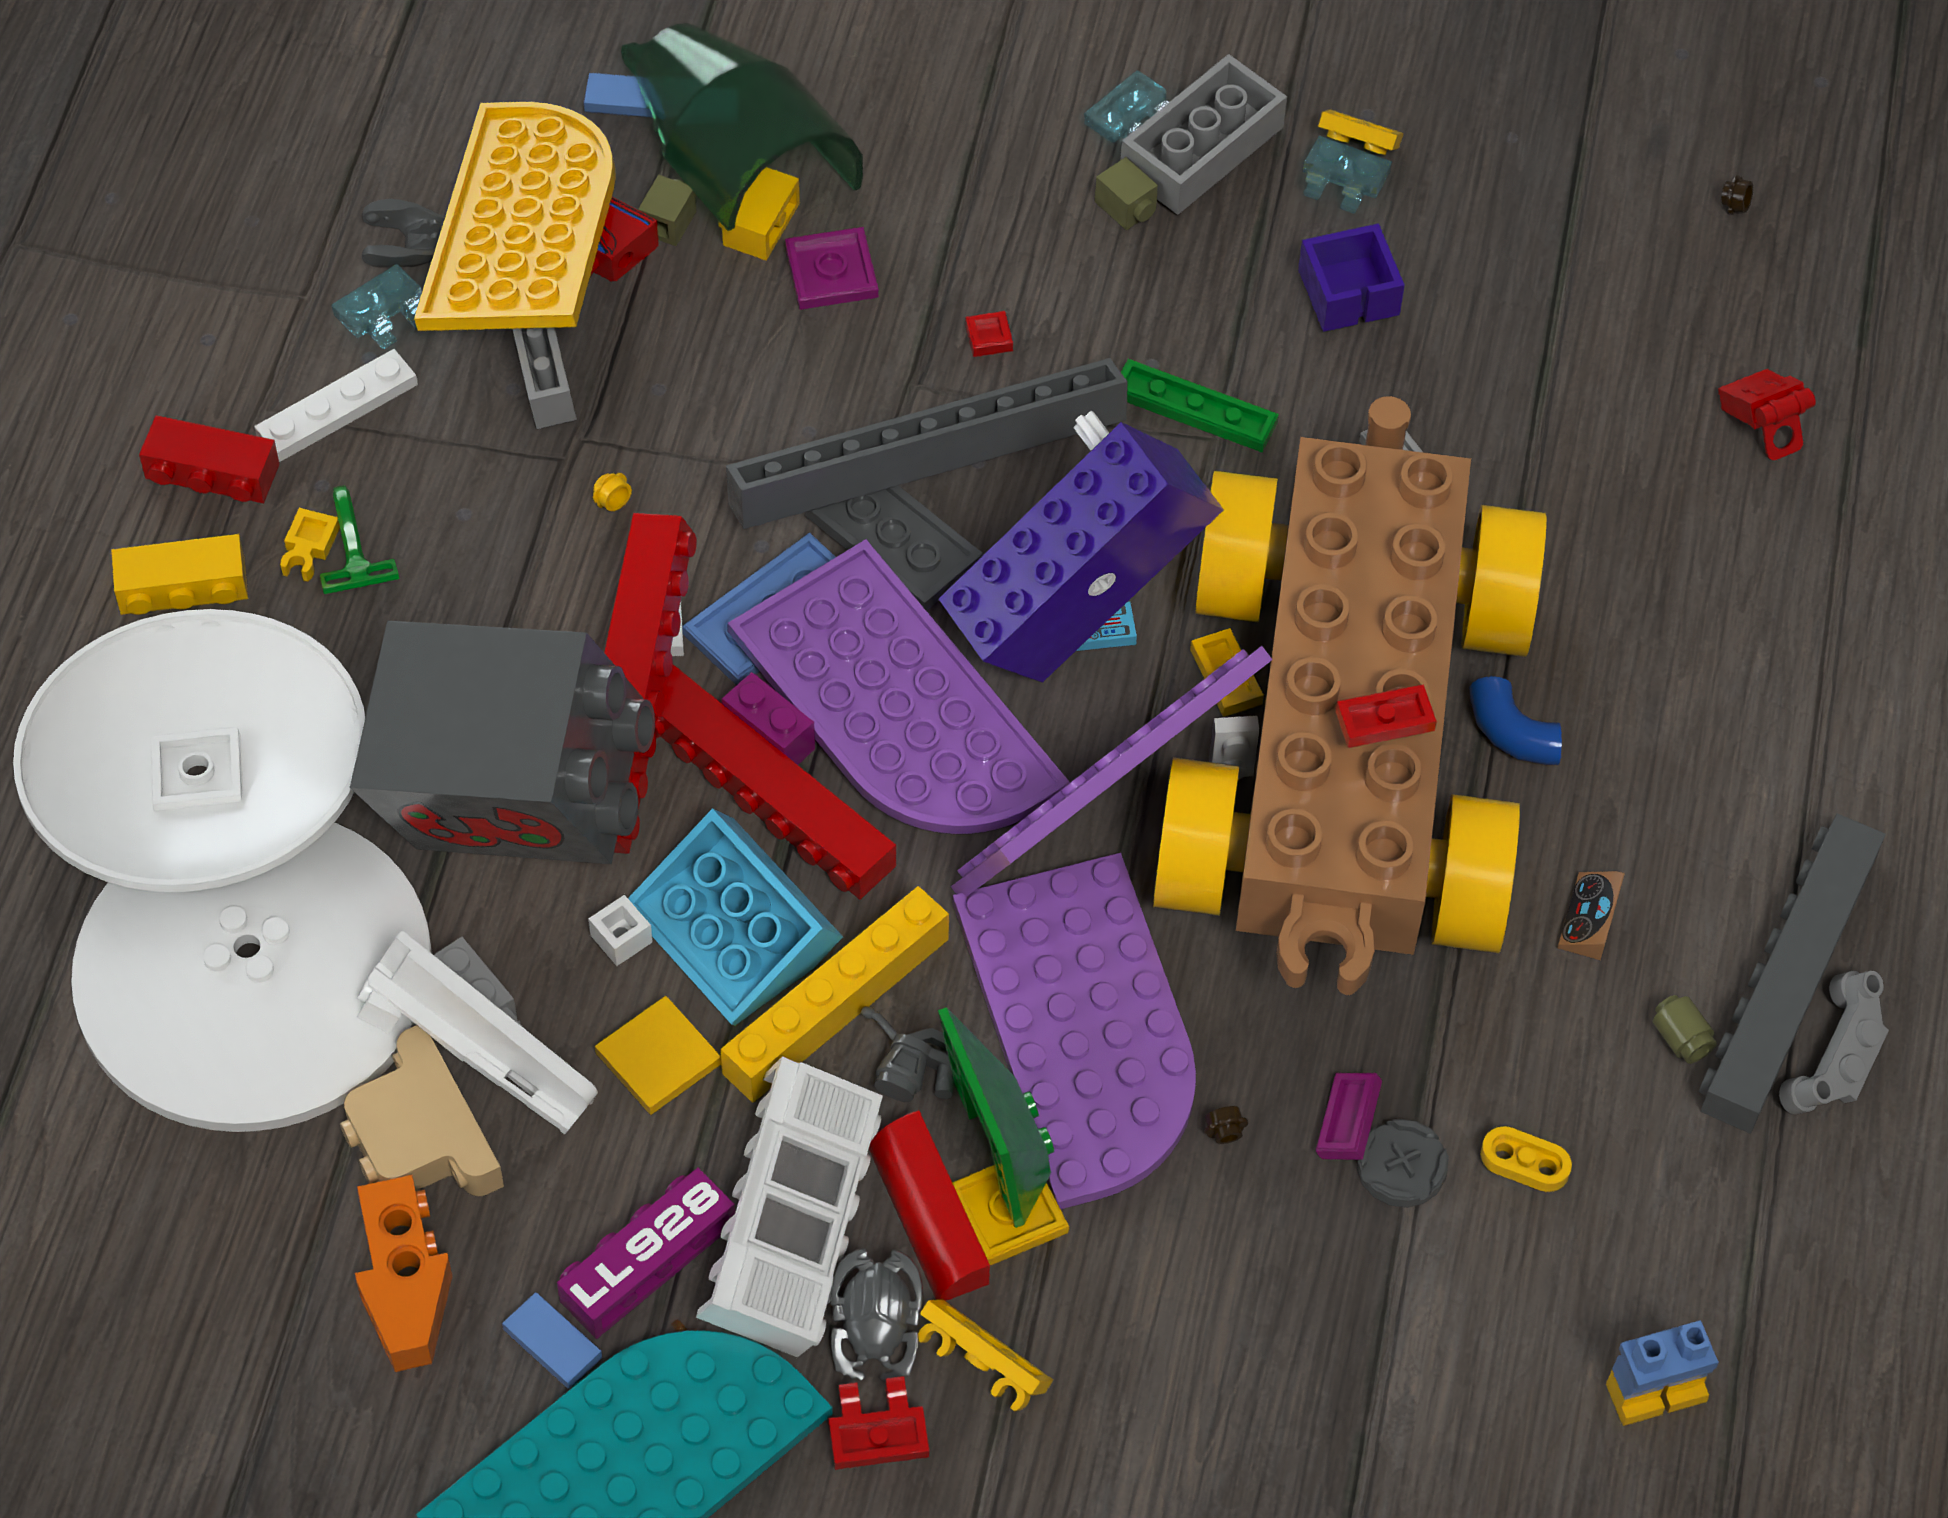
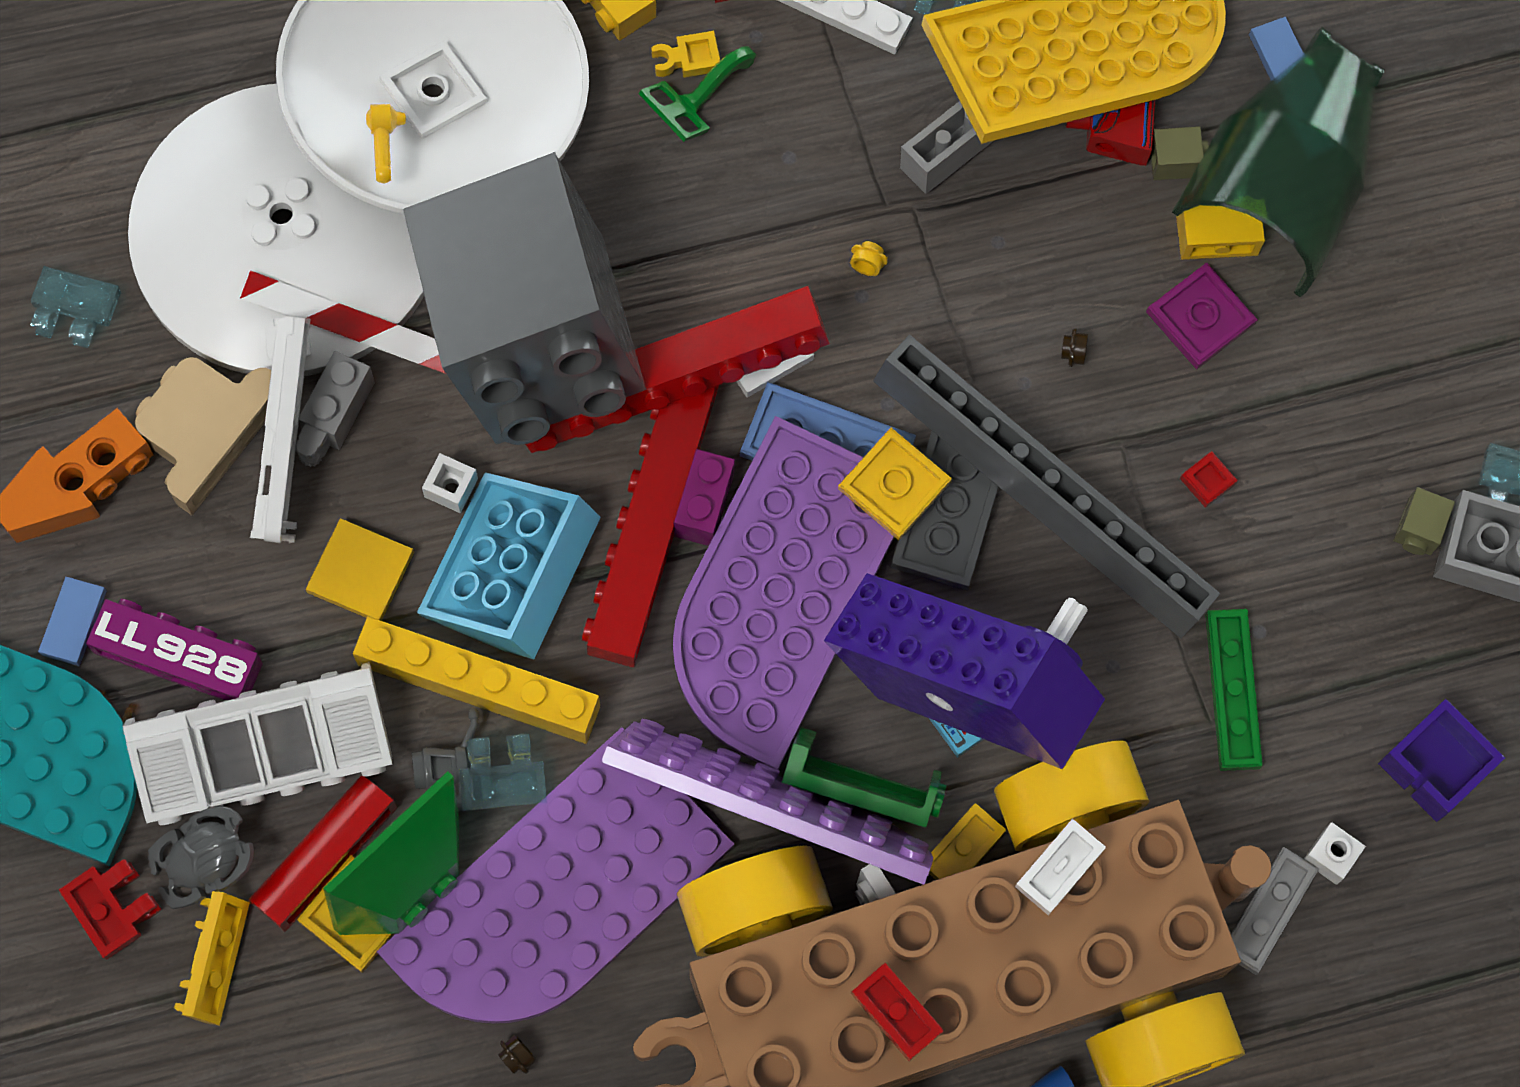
camera: 60 degrees right, 15 degrees up
(199, 1191) = (75, 296): none -> clear light blue plate
(221, 799) = (382, 121): none -> yellow piece
(422, 926) = (342, 320): none -> sticker
(803, 372) = (1075, 348): none -> dark brown plate
(855, 555) = (894, 483): none -> yellow tile
(956, 993) = (501, 785): none -> clear light blue plate
(1077, 747) = (861, 787): none -> green panel
(1321, 534) = (1060, 867): none -> white plate
(1386, 385) = (1329, 865): none -> white plate

